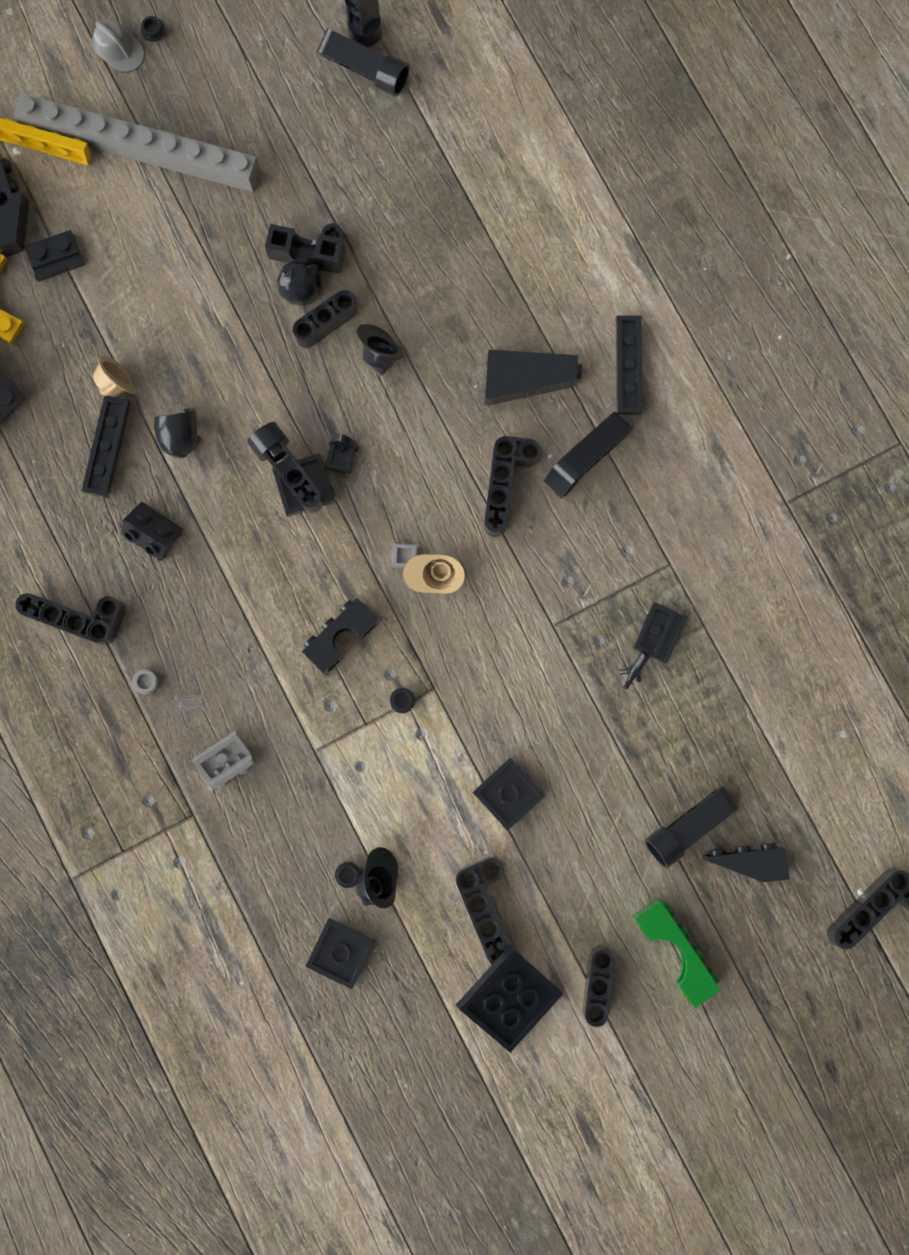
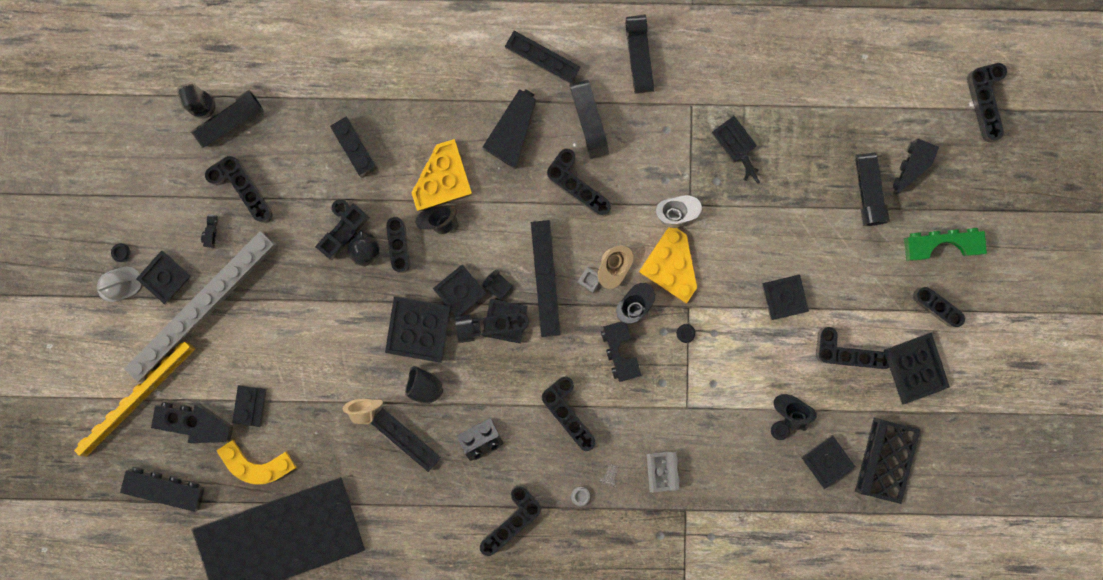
camera: 60 degrees left, 5 degrees up
(149, 87) = (163, 277): none -> black plate
(225, 110) = (209, 236): none -> black plate
(234, 619) = (571, 416): none -> black beam
(240, 391) = (418, 329): none -> black plate
(291, 120) = (244, 191): none -> black beam
(310, 415) = (459, 290): none -> black plate
(369, 1006) = (872, 456): none -> black fence
(377, 503) = (545, 278): none -> black brick
(403, 622) = (636, 303): none -> black piece
(414, 200) = (353, 147): none -> black arch
(428, 327) = (441, 178): none -> yellow plate
(473, 640) = (672, 265): none -> yellow plate
(539, 611) = (678, 210): none -> light grey piece
(696, 469) = (639, 53): none -> black beam

